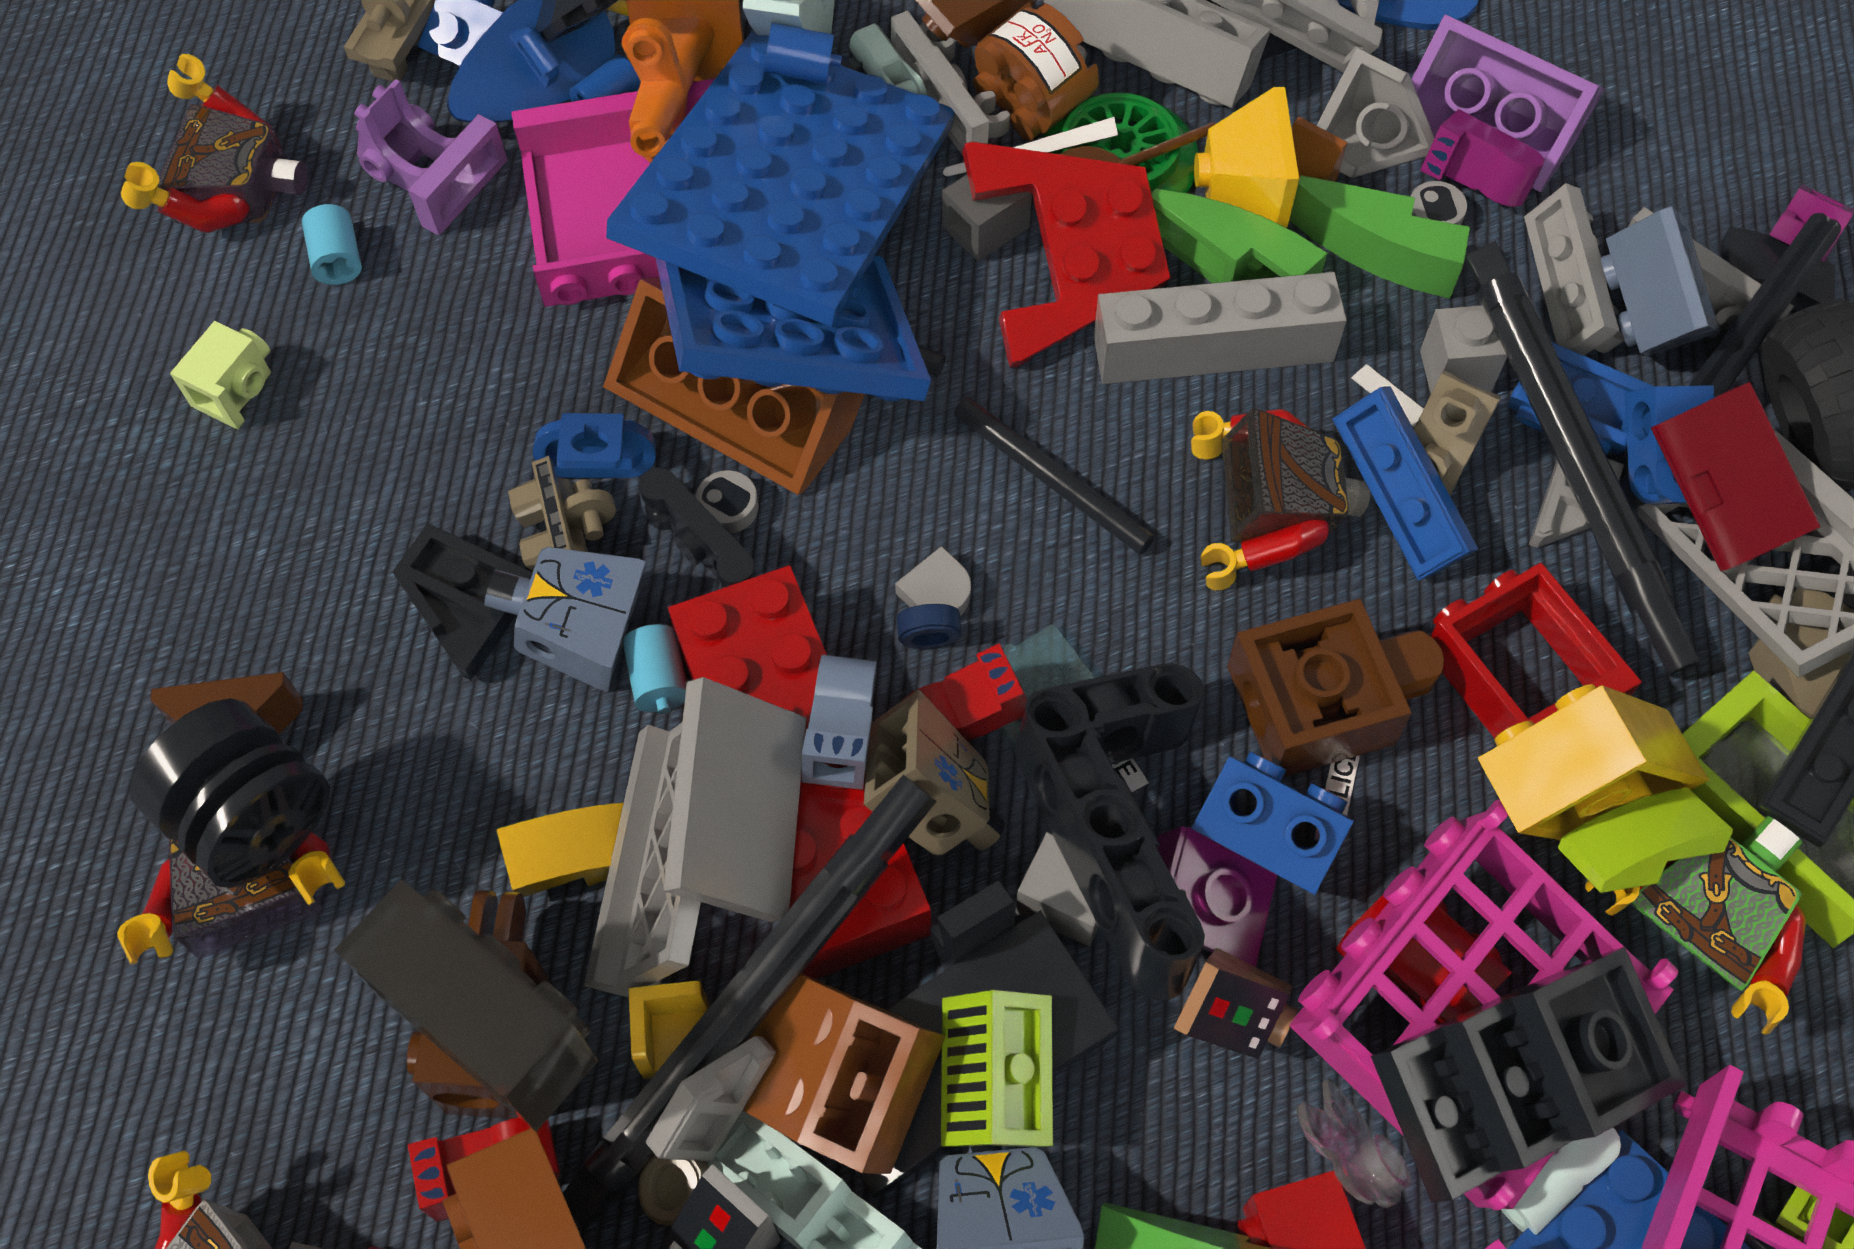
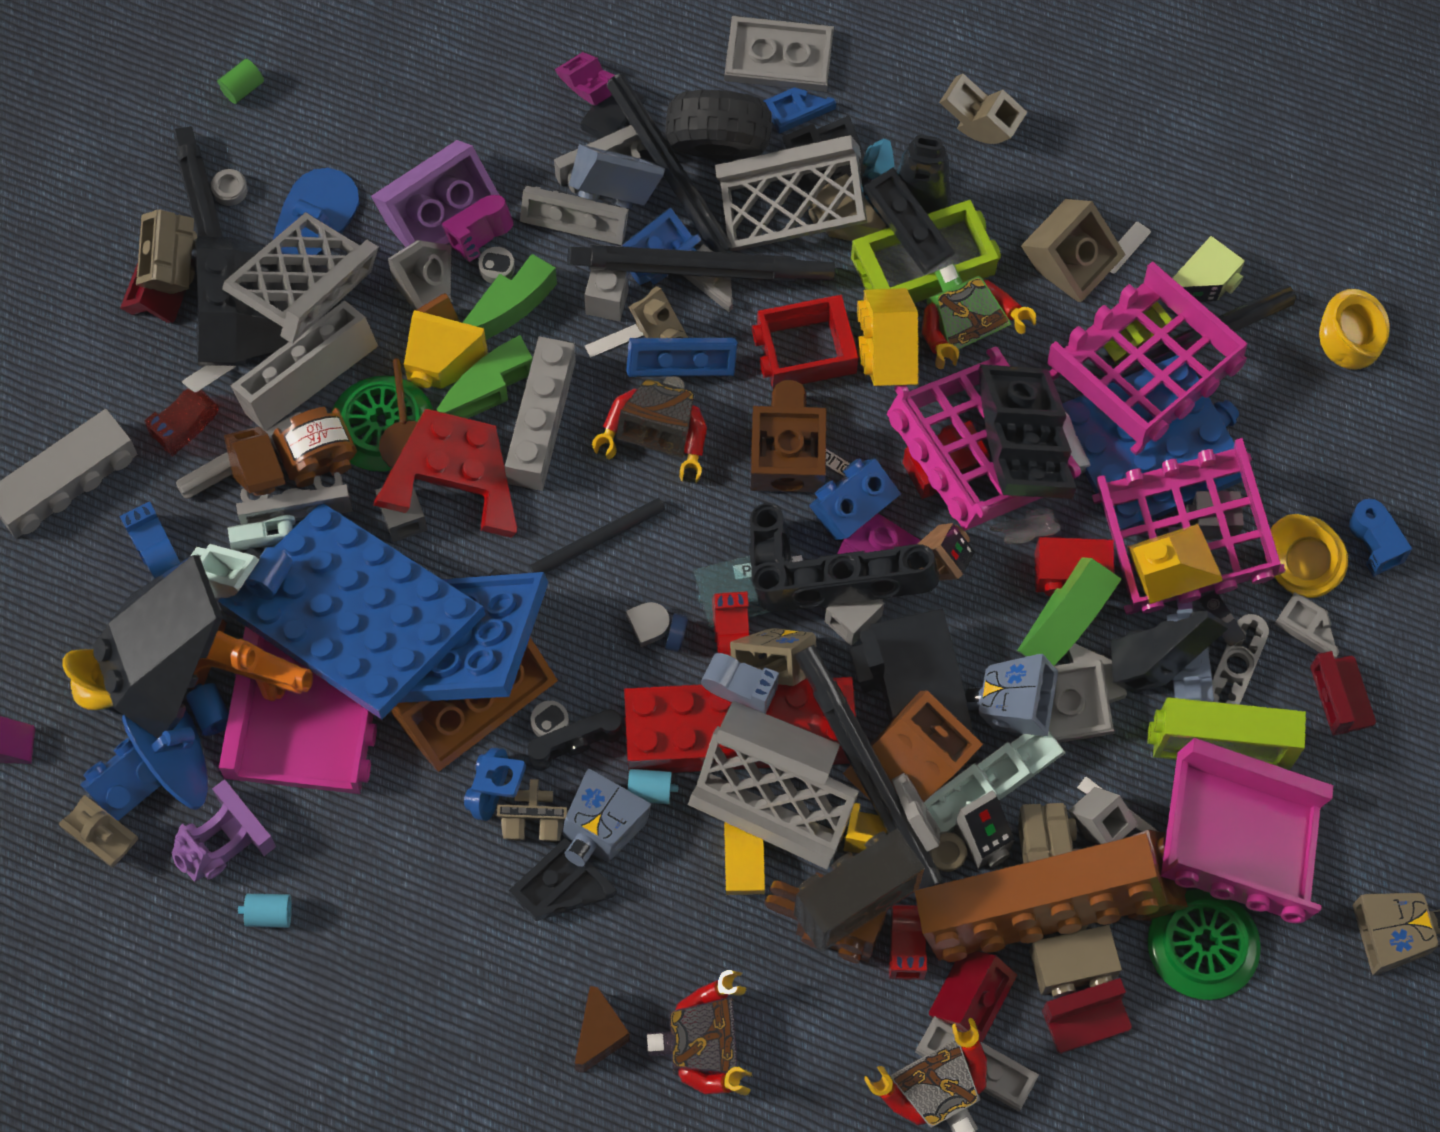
camera: 75 degrees left, 5 degrees up
(220, 165) = (173, 966): torso -> none
(223, 372) = (348, 993): yellowish green brick -> none
(229, 792) = (679, 1008): black wheel -> none
(997, 1070) = (947, 672): lime panel -> none
(1077, 136) = (370, 444): white sticker -> none
(1638, 838) = (935, 336): lime slope -> none
(1647, 467) = (710, 218): blue leg -> none
(1735, 477) = (752, 198): dark red piece -> none

